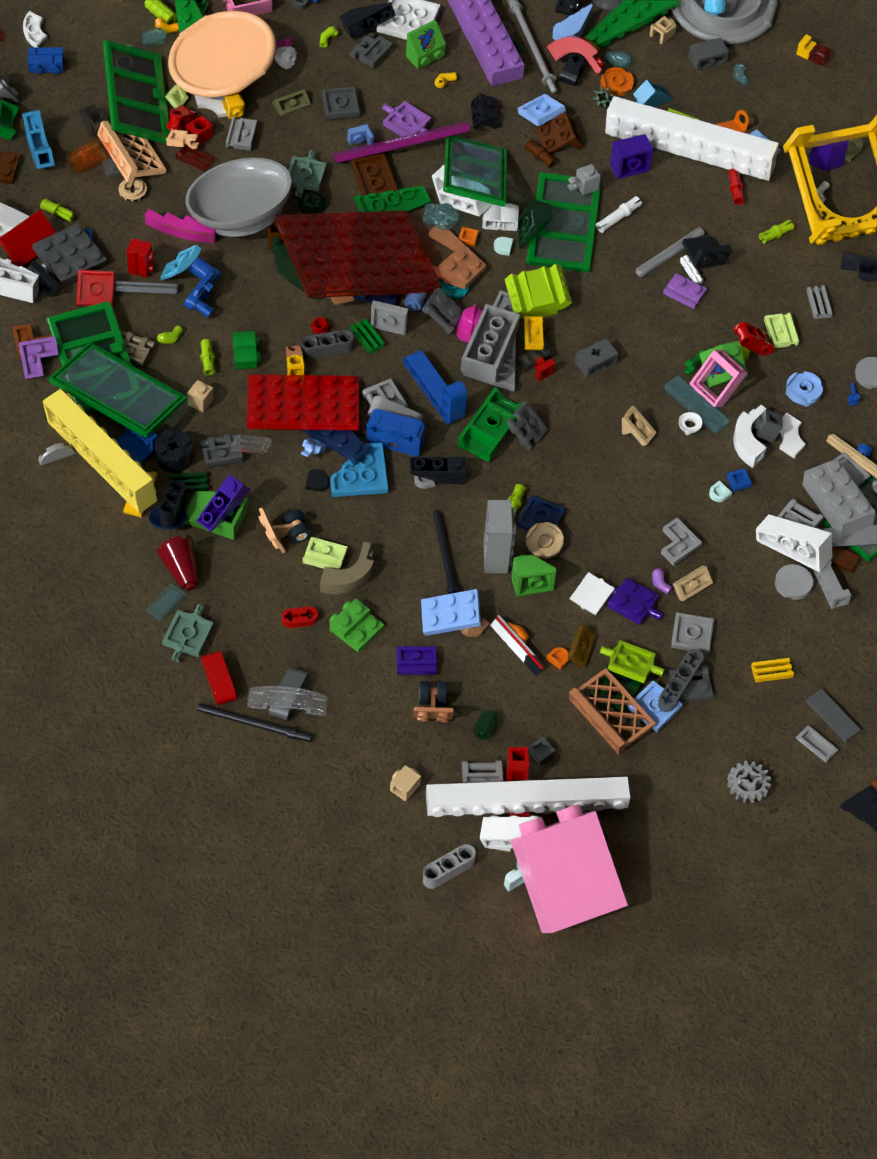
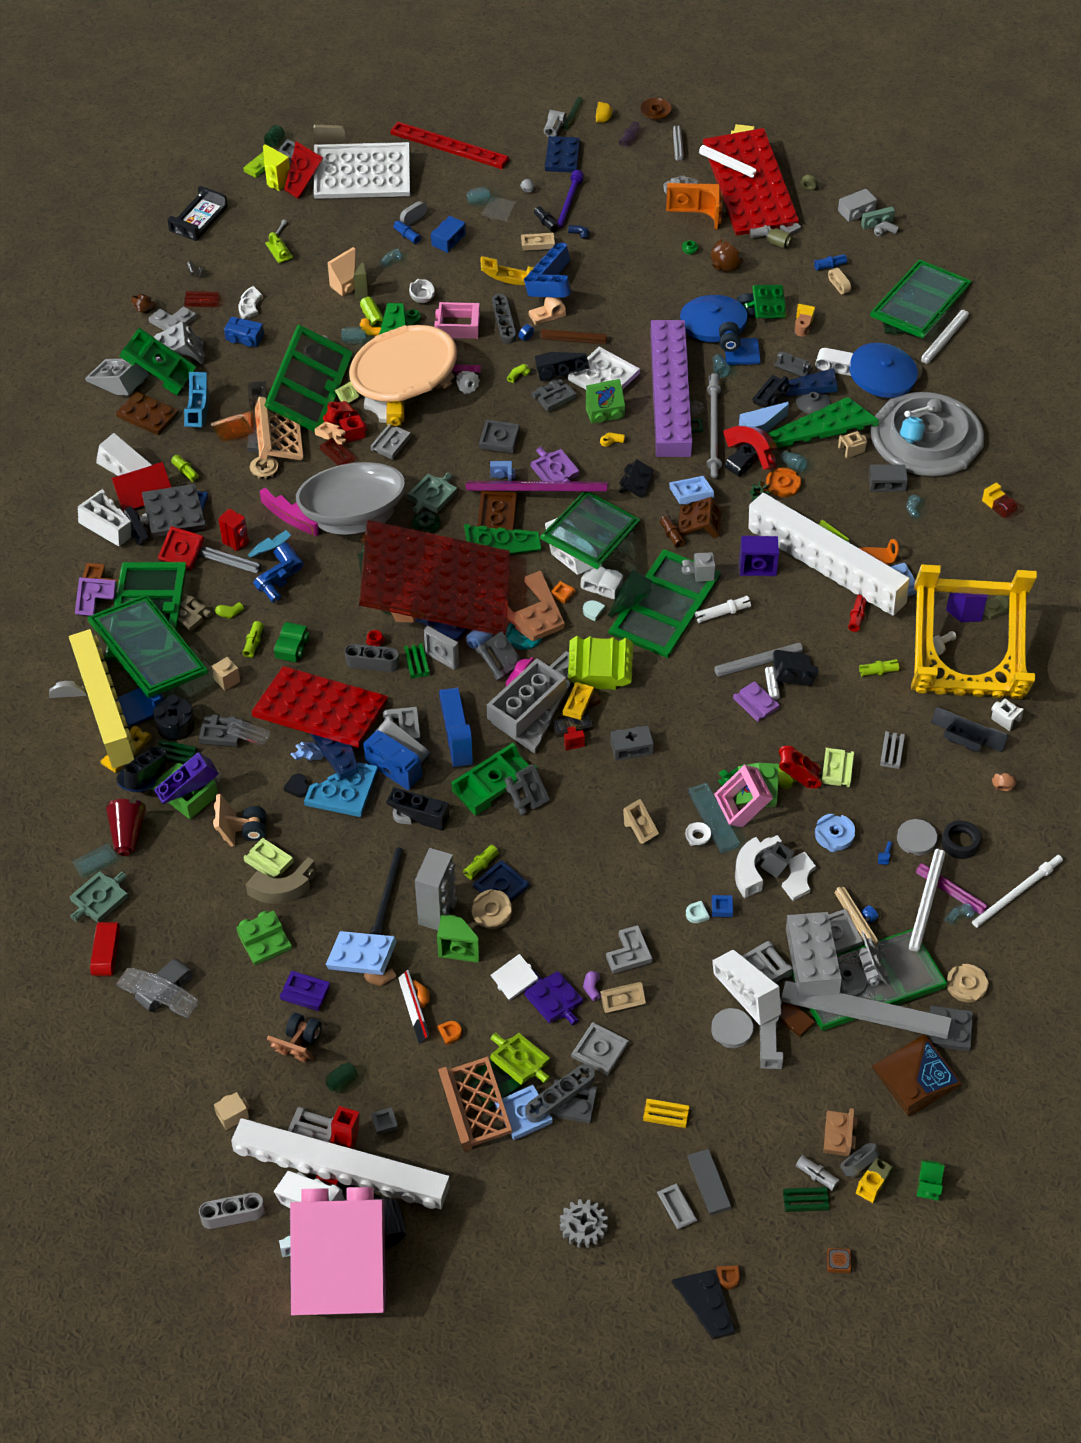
camera: 25 degrees right, 5 degrees down
(290, 732) = (146, 1024): black bar -> none
(291, 102) = (454, 424): olive slope -> none
(294, 360) = (332, 664): yellow leg -> none
(299, 617) = (214, 912): red beam -> none
(441, 215) = (543, 565): clear light blue plate -> none
(581, 646) = (477, 1027): pearl gold plate -> none
(652, 94) = (810, 503): dark azure slope -> none

